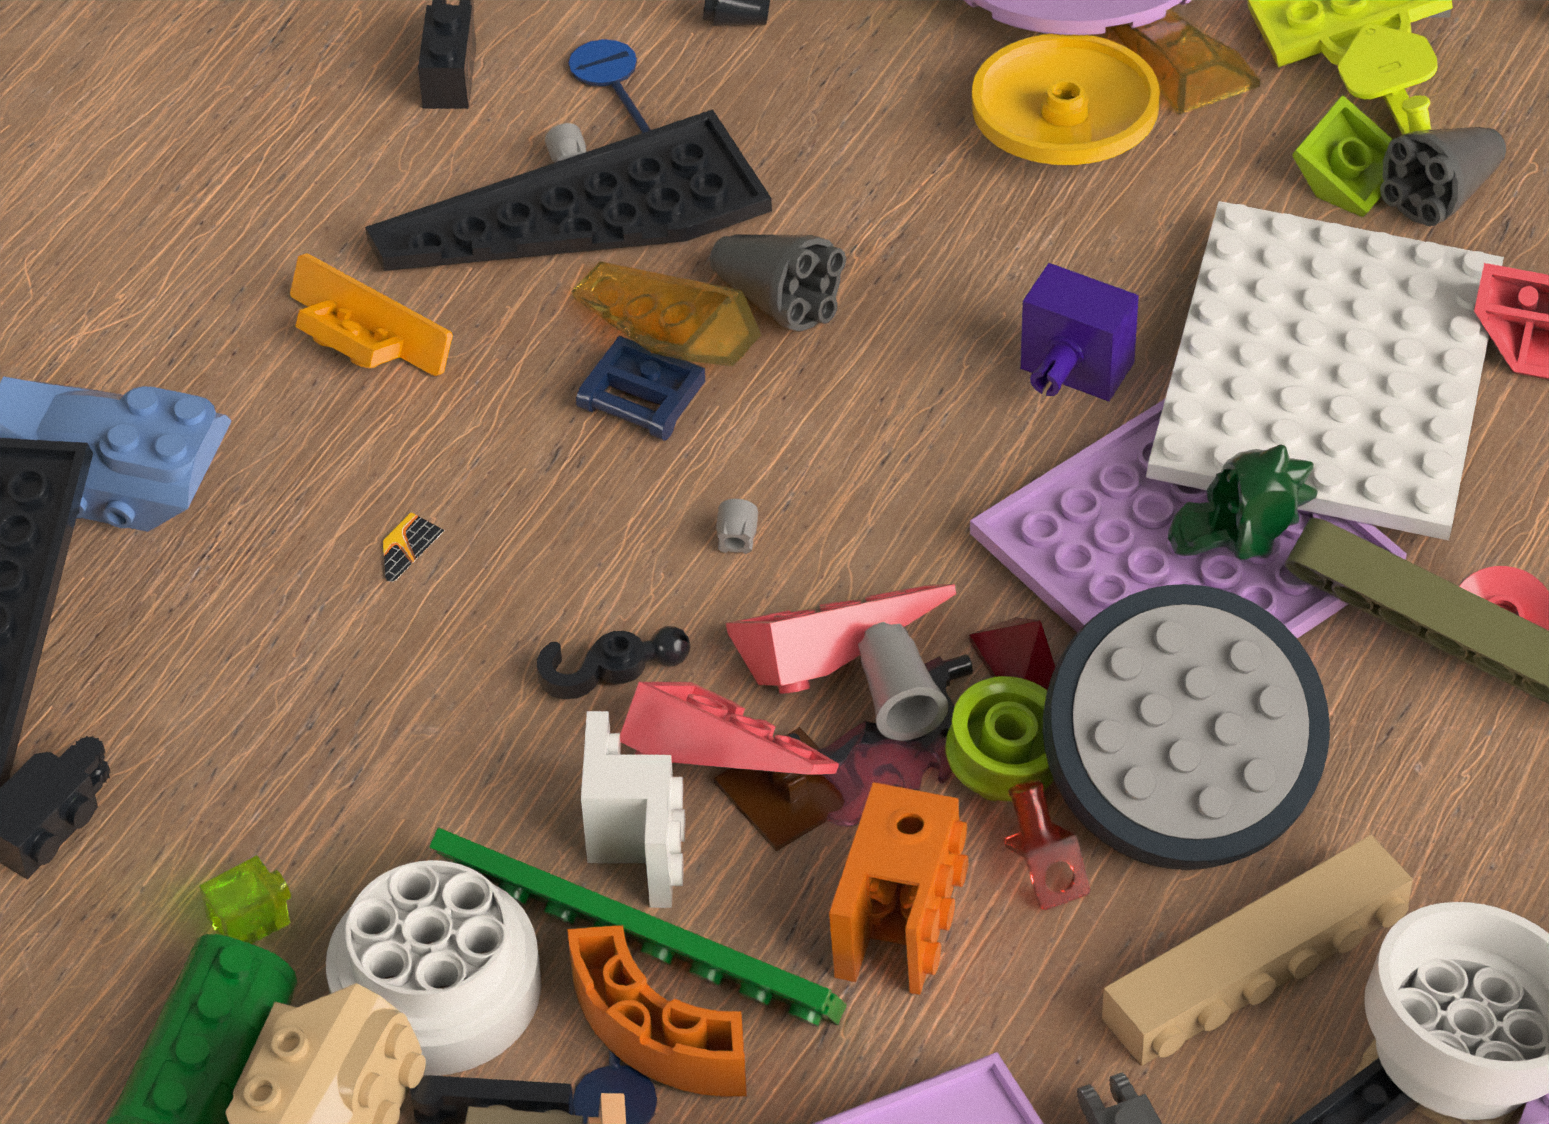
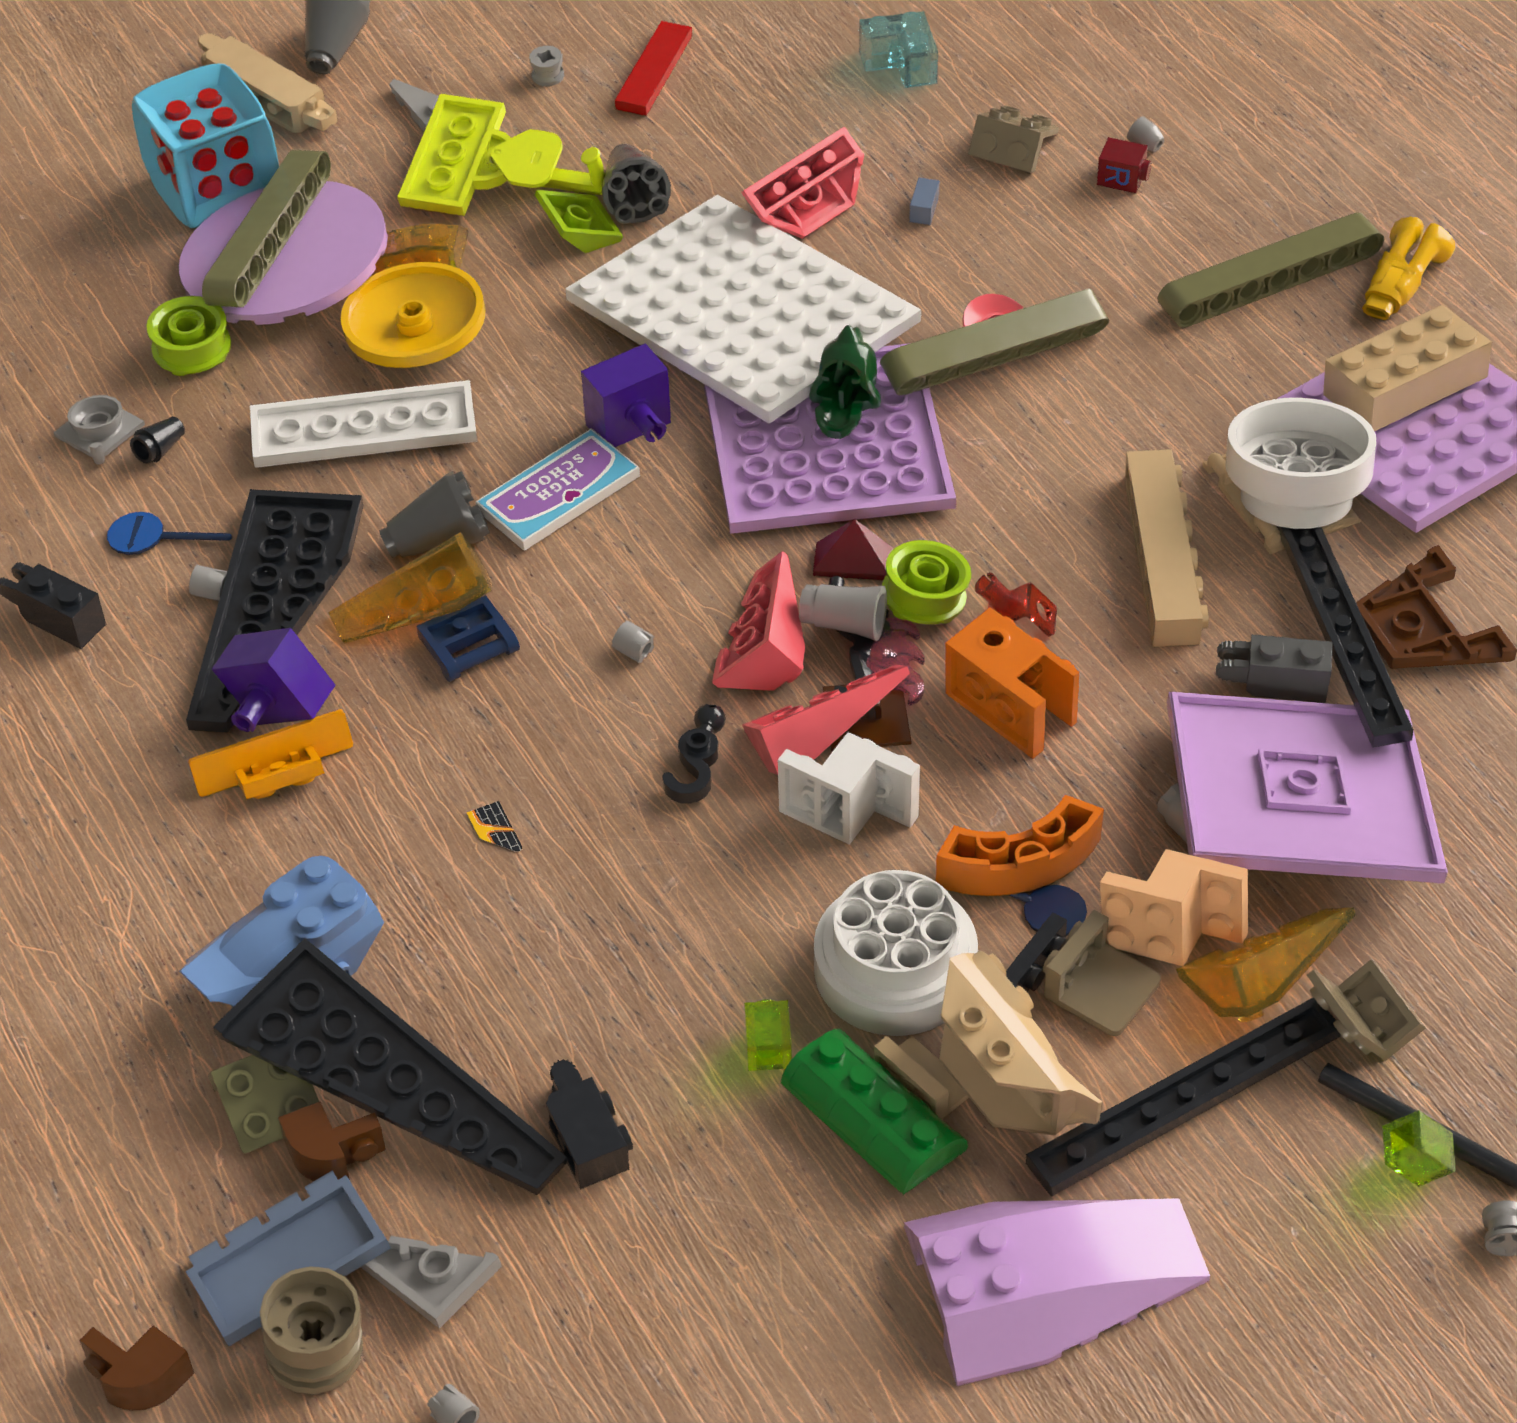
camera: 60 degrees left, 0 degrees up
(433, 254) = (272, 678): none -> dark purple brick
(659, 938) = (923, 840): green plate -> none
(885, 149) = (362, 423): none -> white plate
(920, 354) = (557, 489): none -> tile
(1186, 727) = (997, 487): light grey wheel -> none

